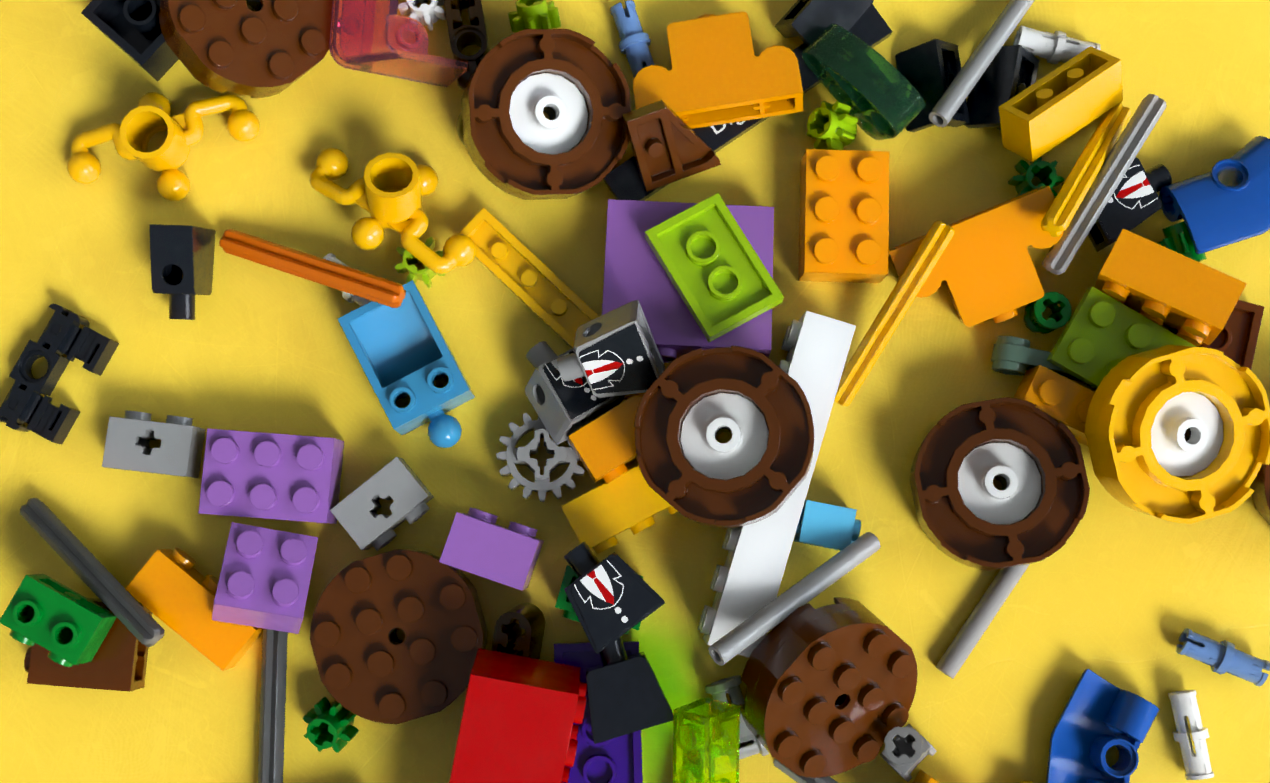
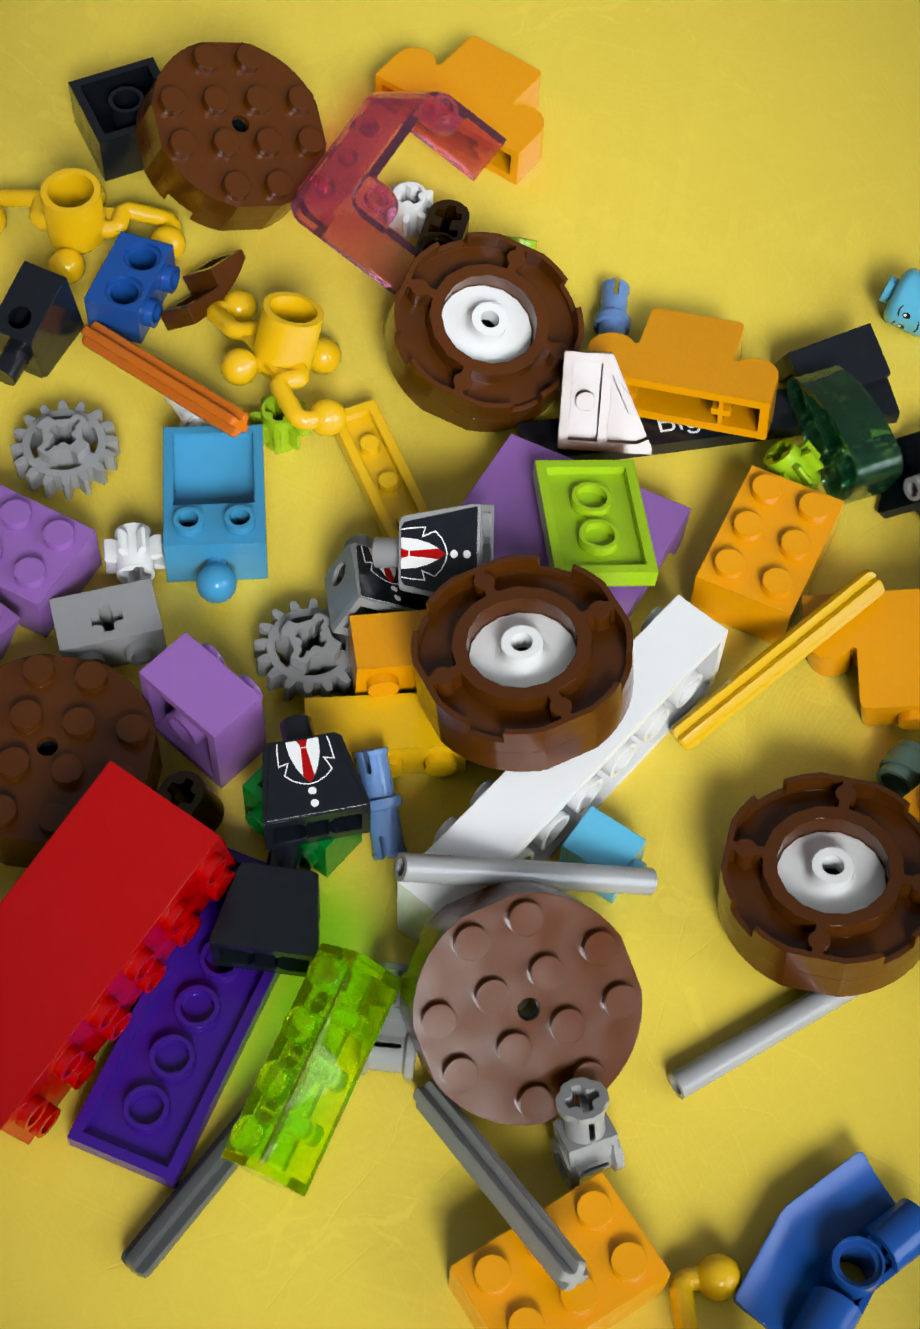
camera: 25 degrees right, 25 degrees down
(228, 187) = (132, 286): none -> blue brick
(261, 377) = (65, 449): none -> light grey gear
(300, 151) = (207, 285): none -> reddish brown slope
(368, 433) = (133, 553): none -> white gear
(653, 562) = (385, 821): none -> medium blue pin

